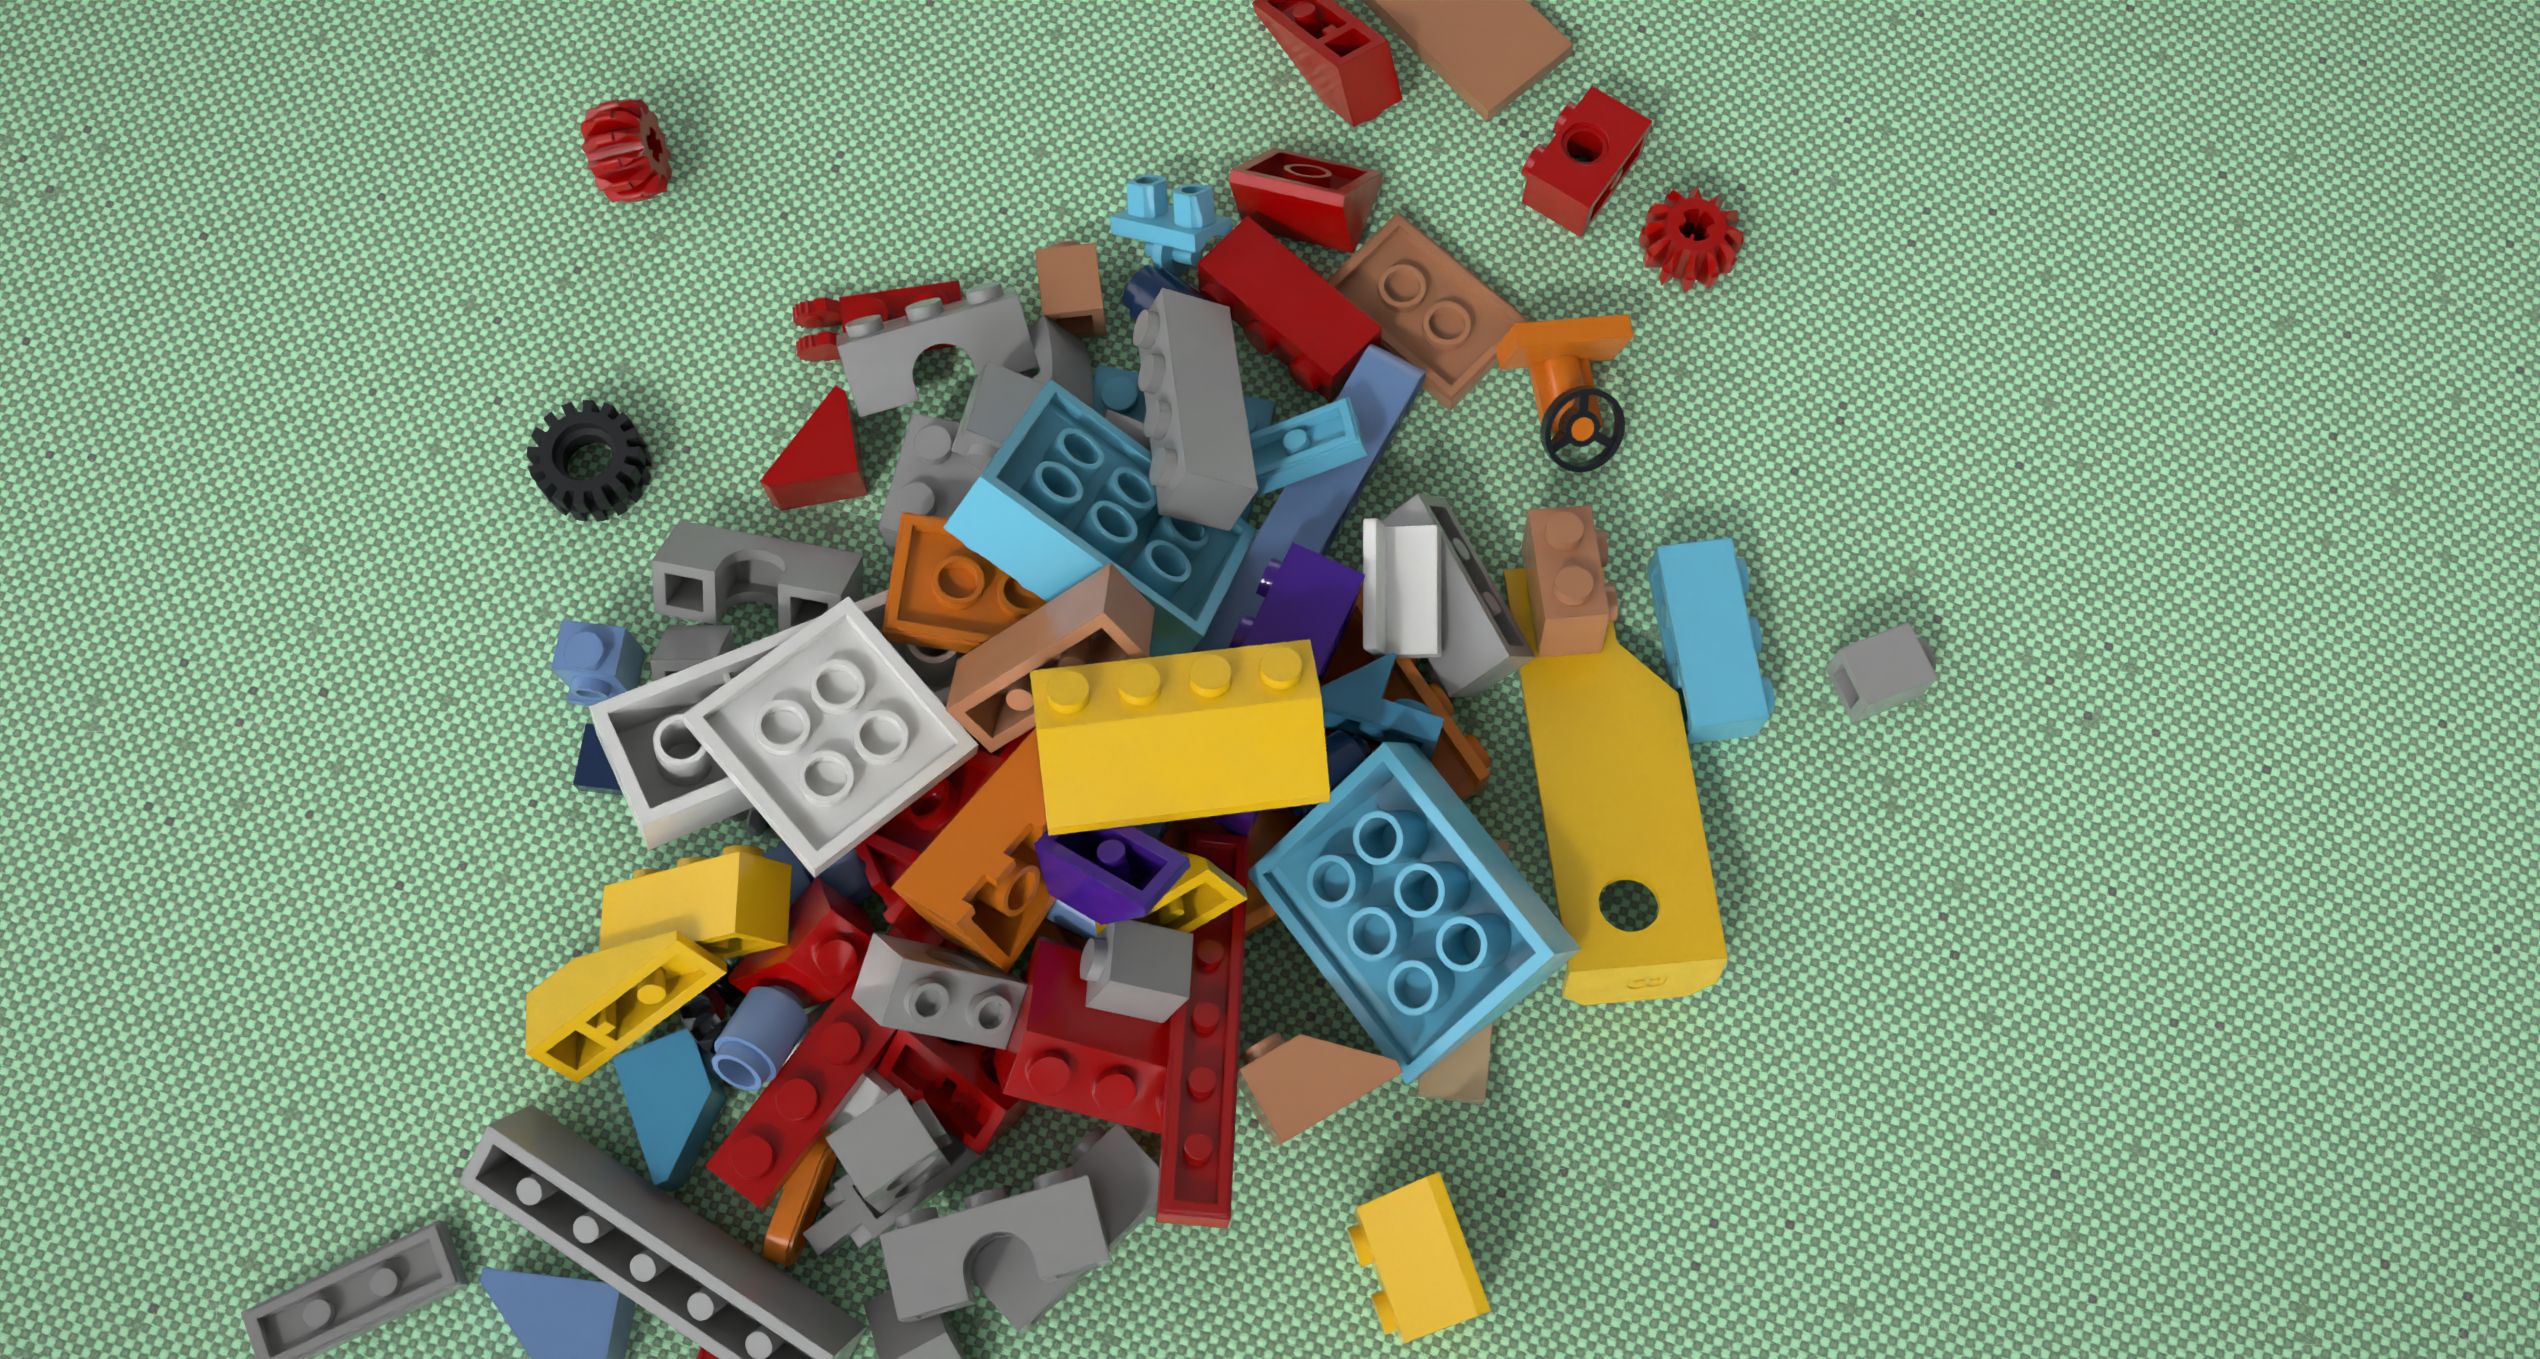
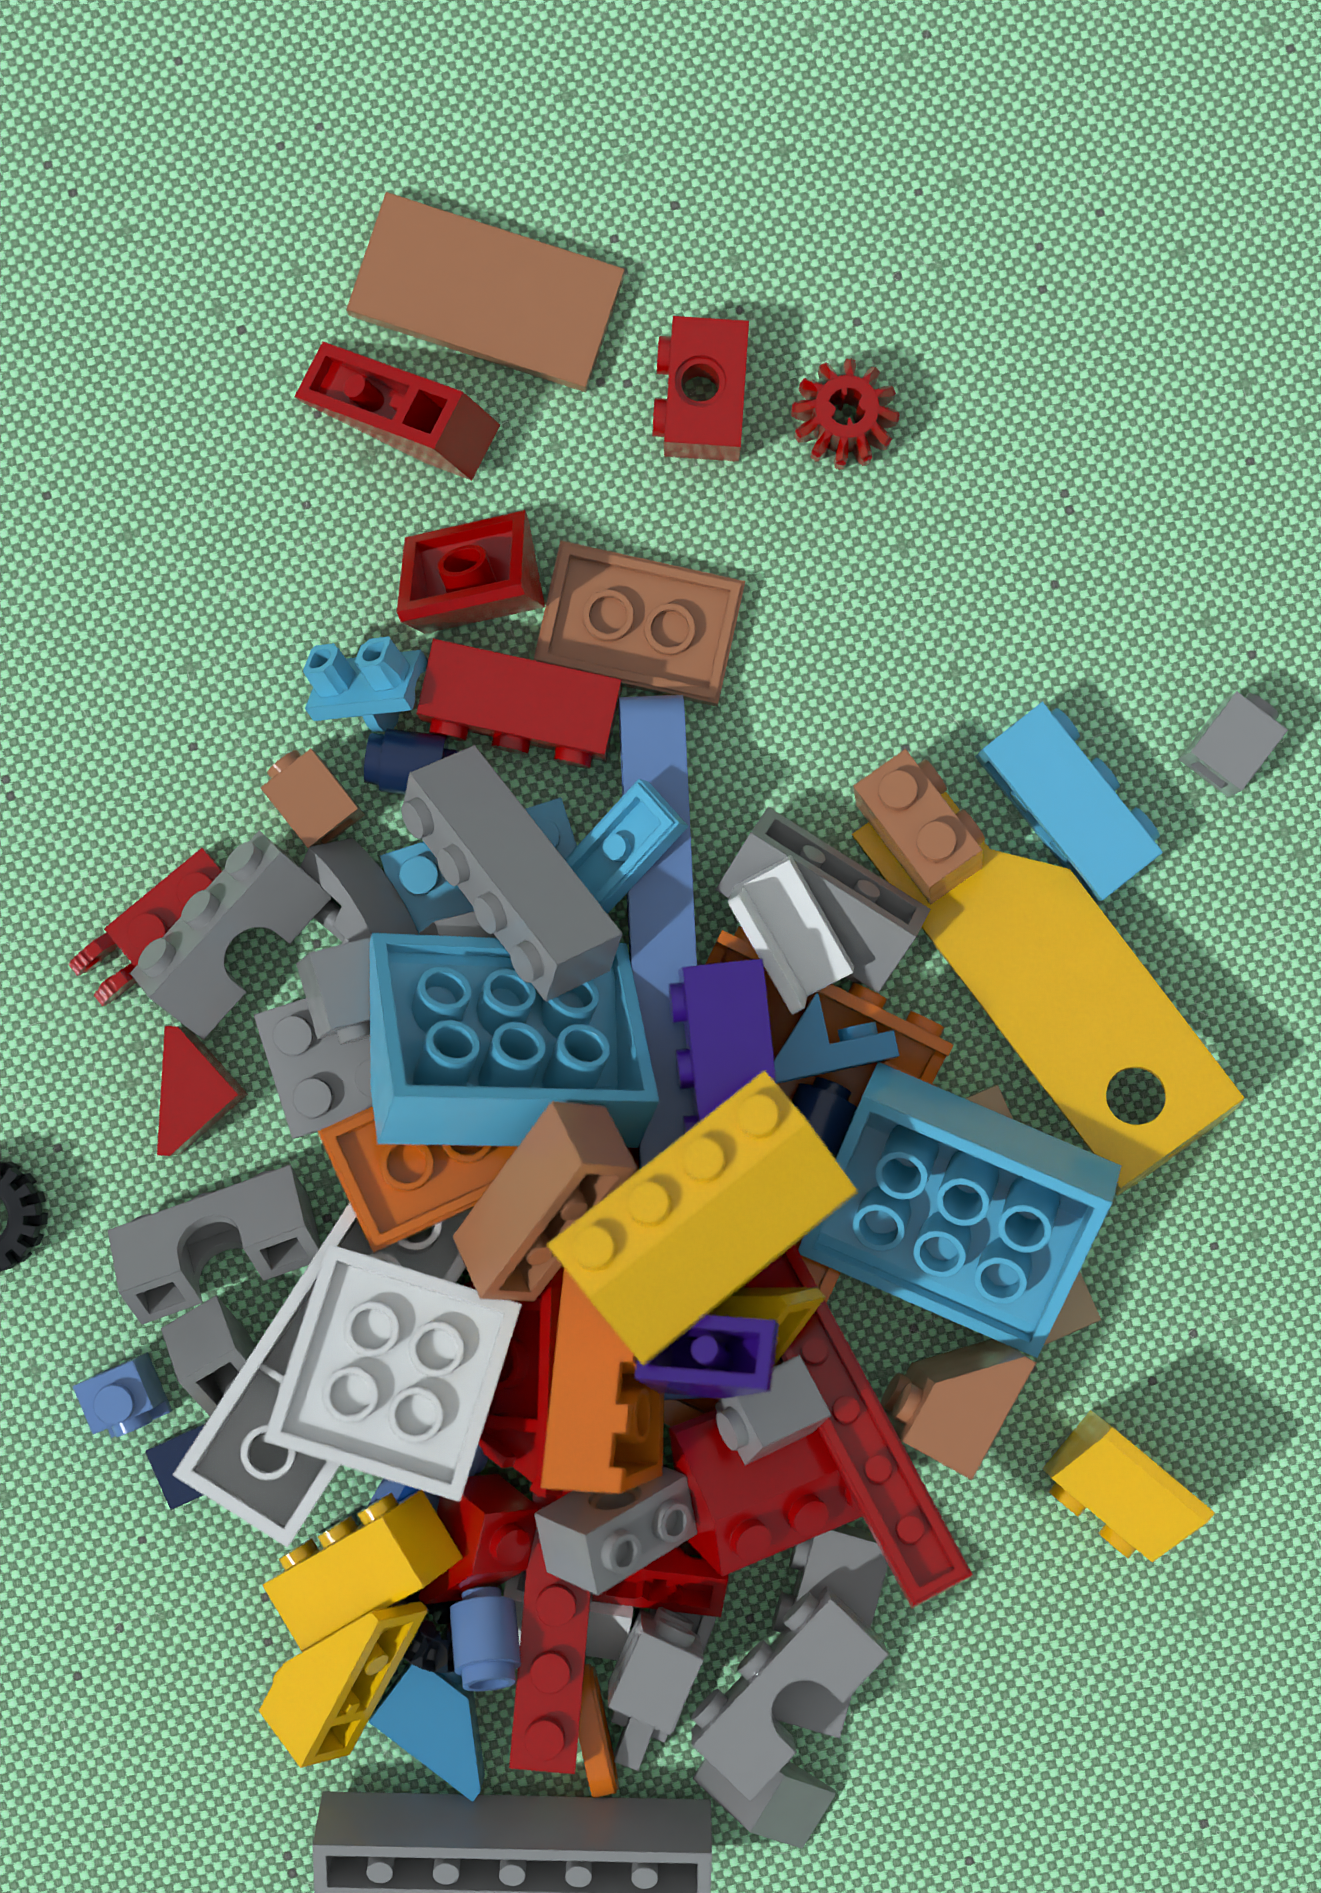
camera: 30 degrees left, 15 degrees up
(1563, 380) = (815, 631): orange piece -> none

